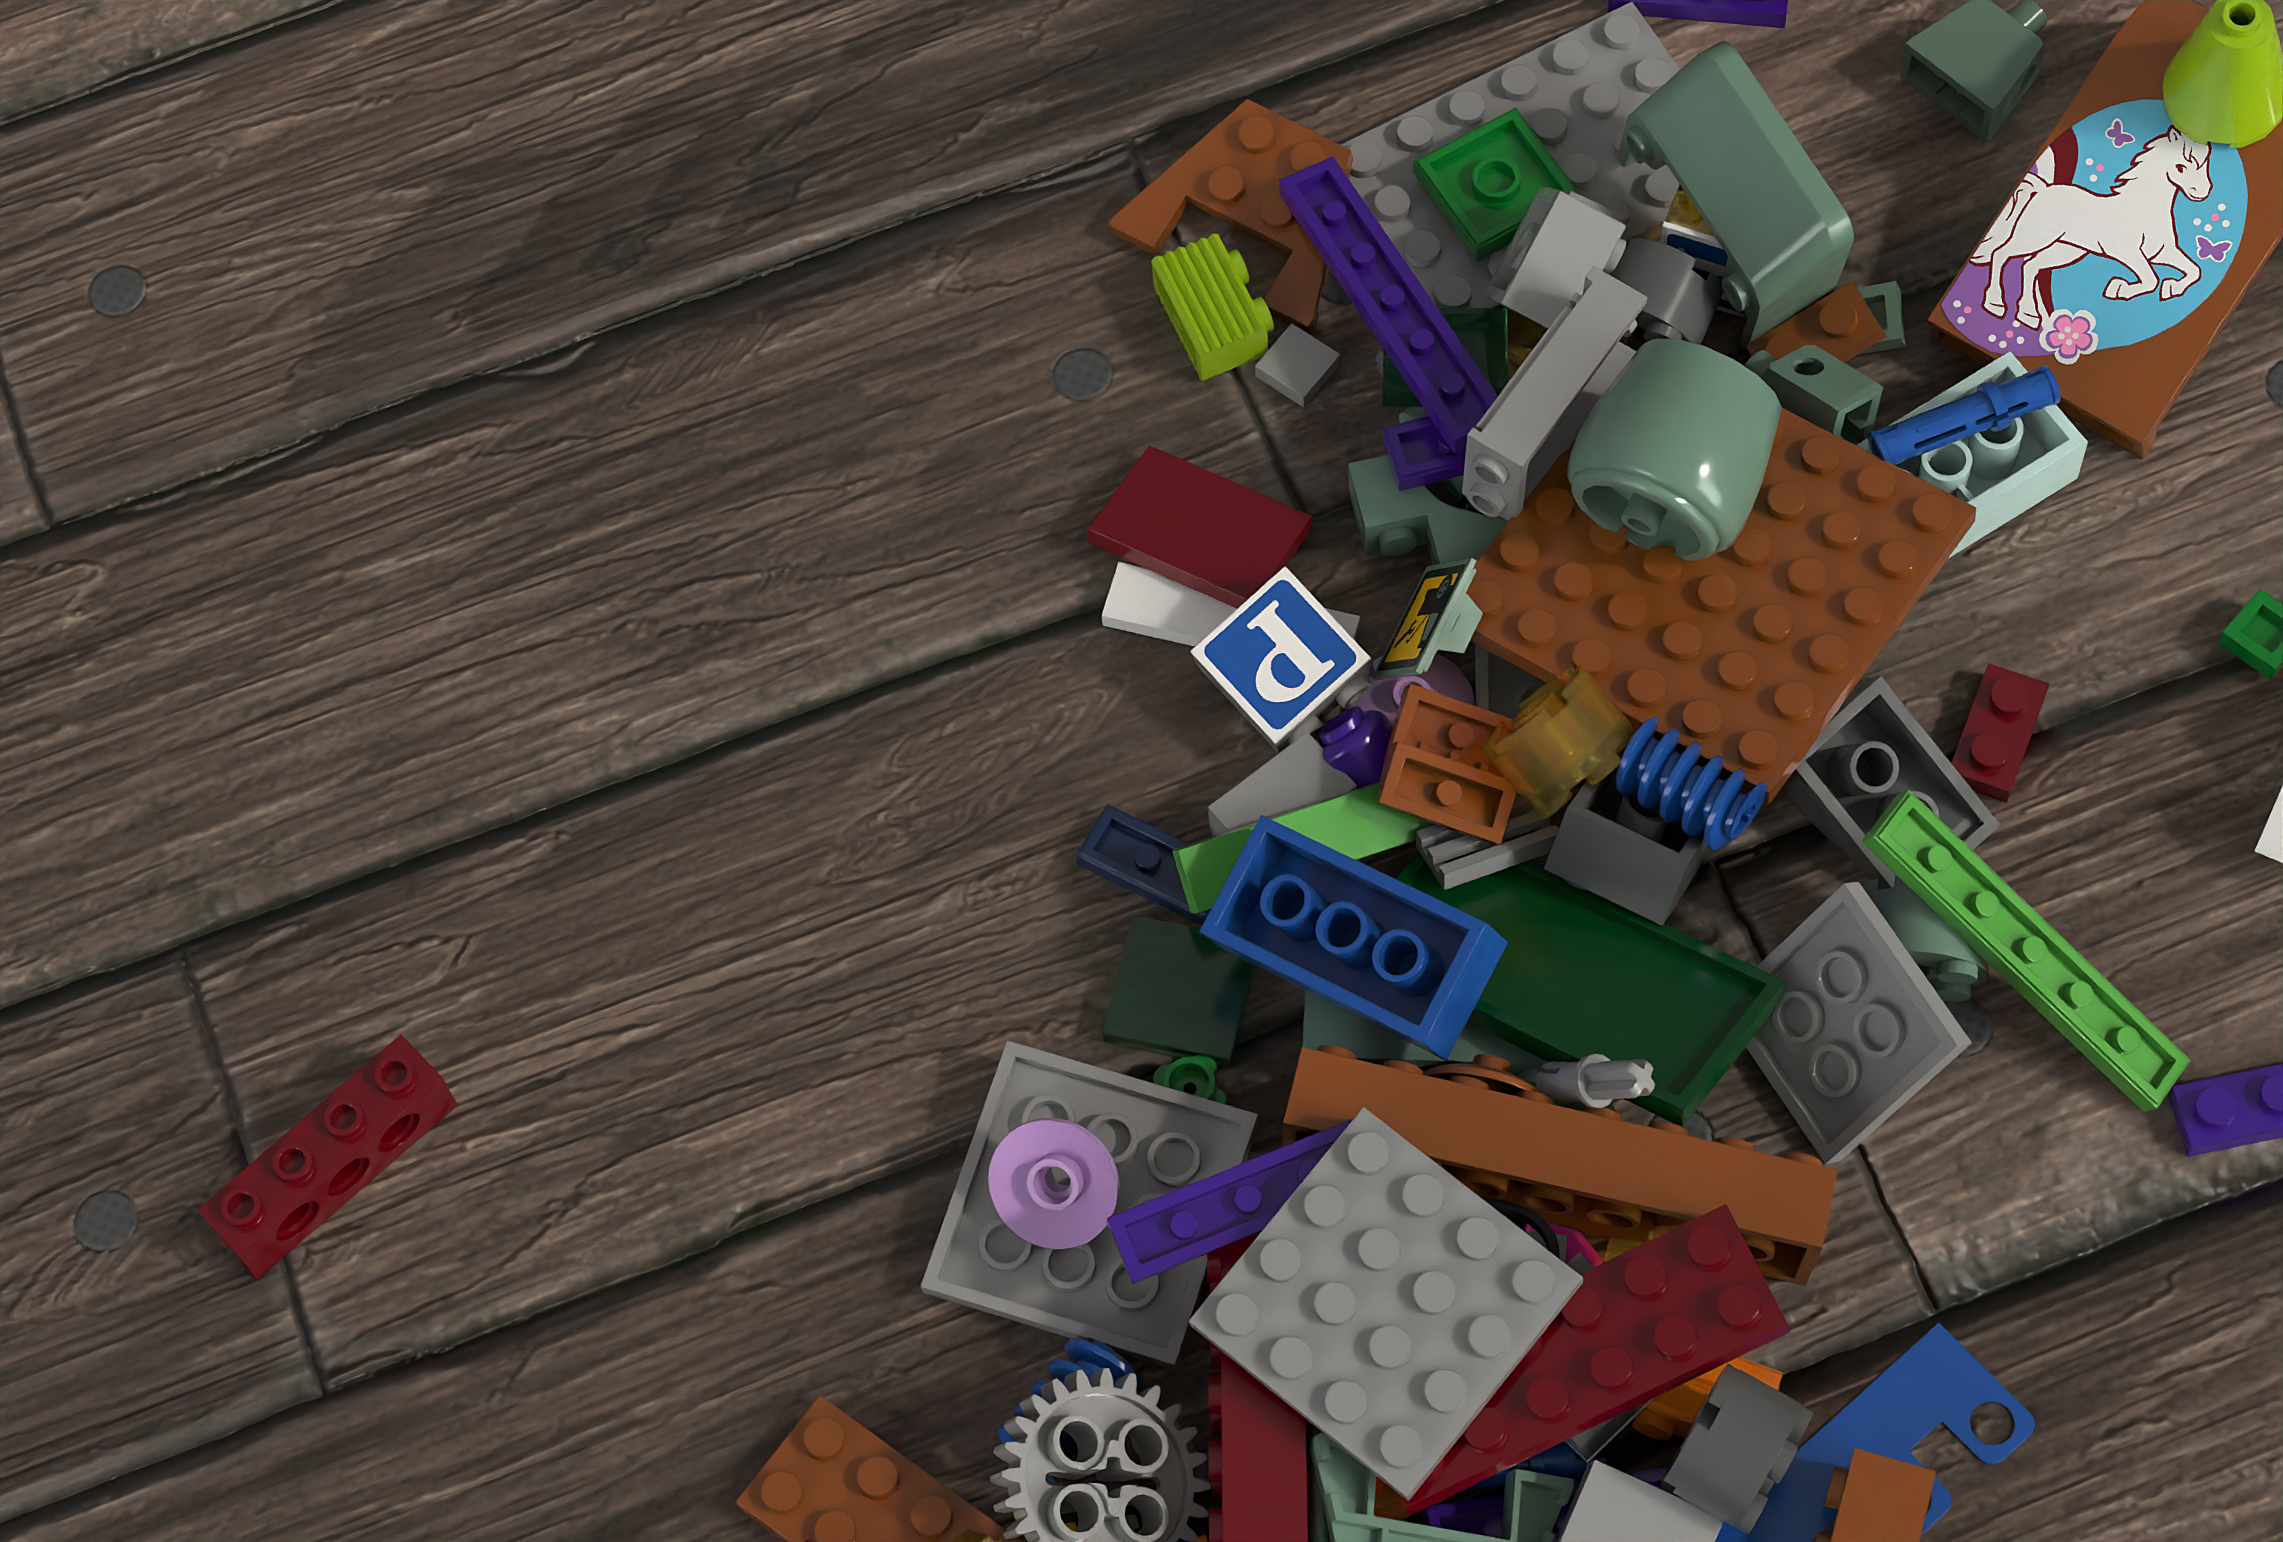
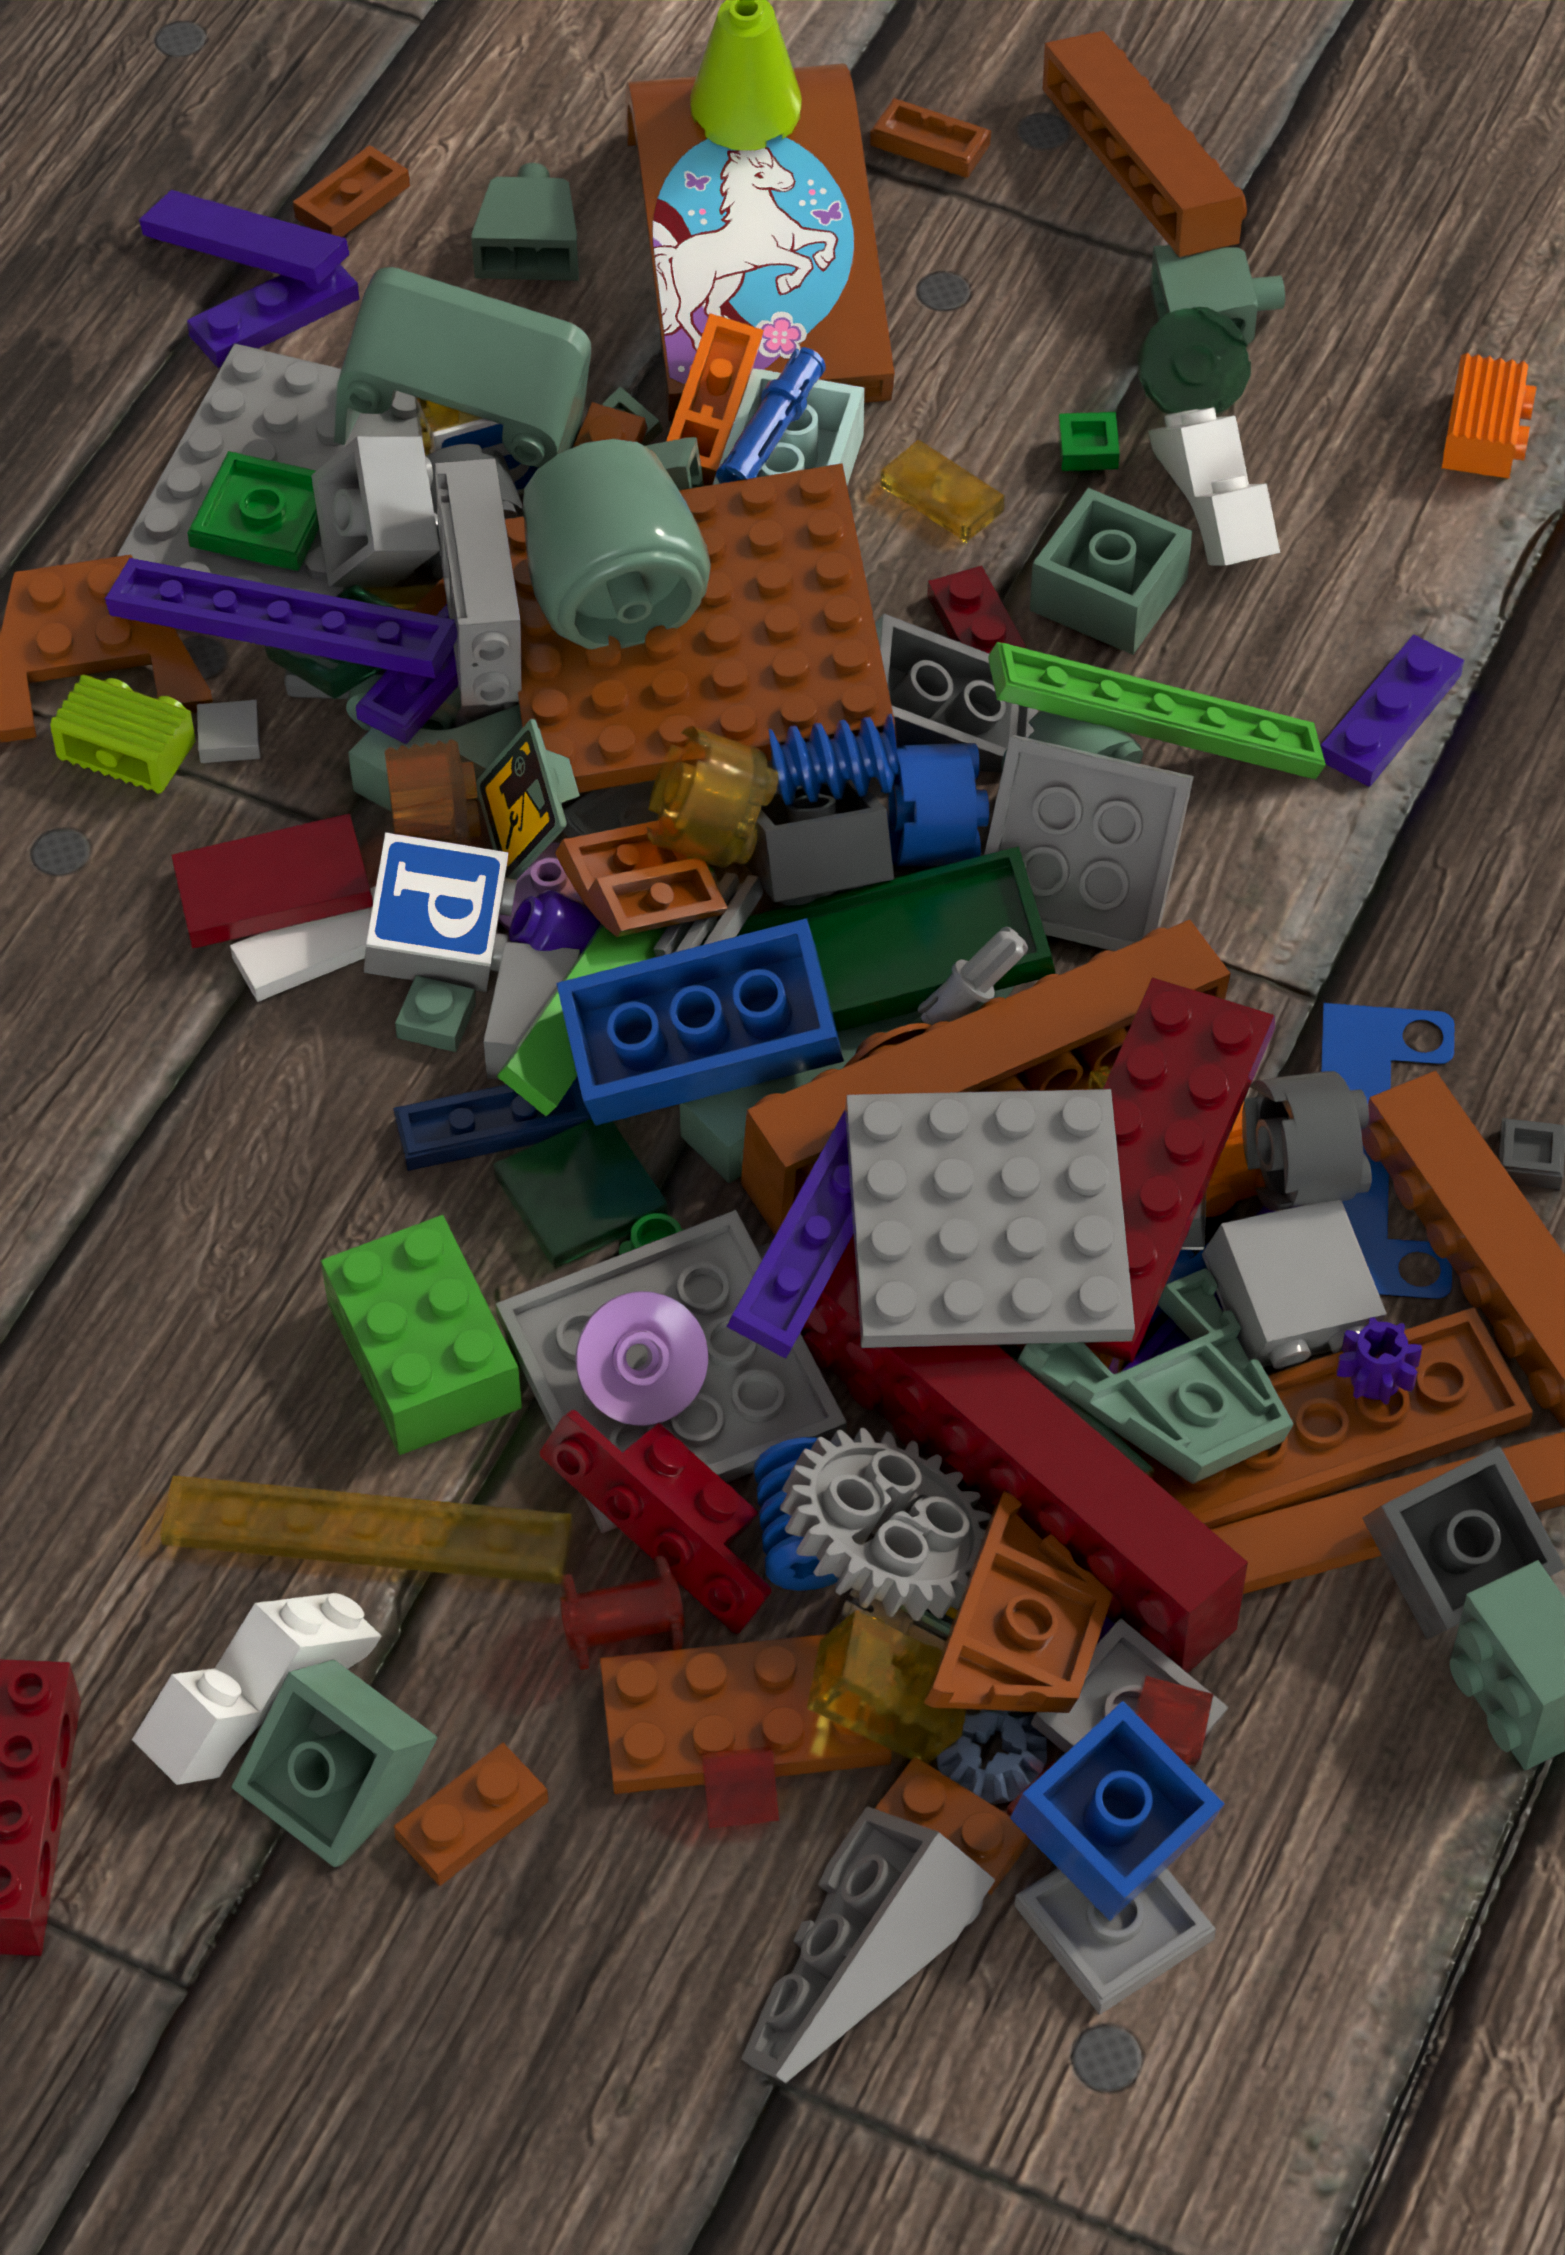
camera: 50 degrees left, 10 degrees down
(565, 1308) = (332, 1760): none -> sand green slope
(579, 1195) = (213, 1711): none -> white arch
(623, 1435) = (471, 1814): none -> dark orange plate
(767, 1144) = (366, 1529): none -> clear yellow tile
(863, 1374) = (622, 1612): none -> clear red hose
(939, 1017) = (421, 1334): none -> bright green brick
(974, 1321) = (666, 1507): none -> dark red bracket
(1219, 746) = (435, 1013): none -> sand green plate
(1365, 561) = (431, 793): none -> clear orange brick
(1767, 881) = (936, 805): none -> blue brick
(1953, 349) = (716, 388): none -> orange slope
(2093, 583) = (942, 490): none -> clear yellow plate
(2144, 778) = (1110, 571): none -> sand green brick

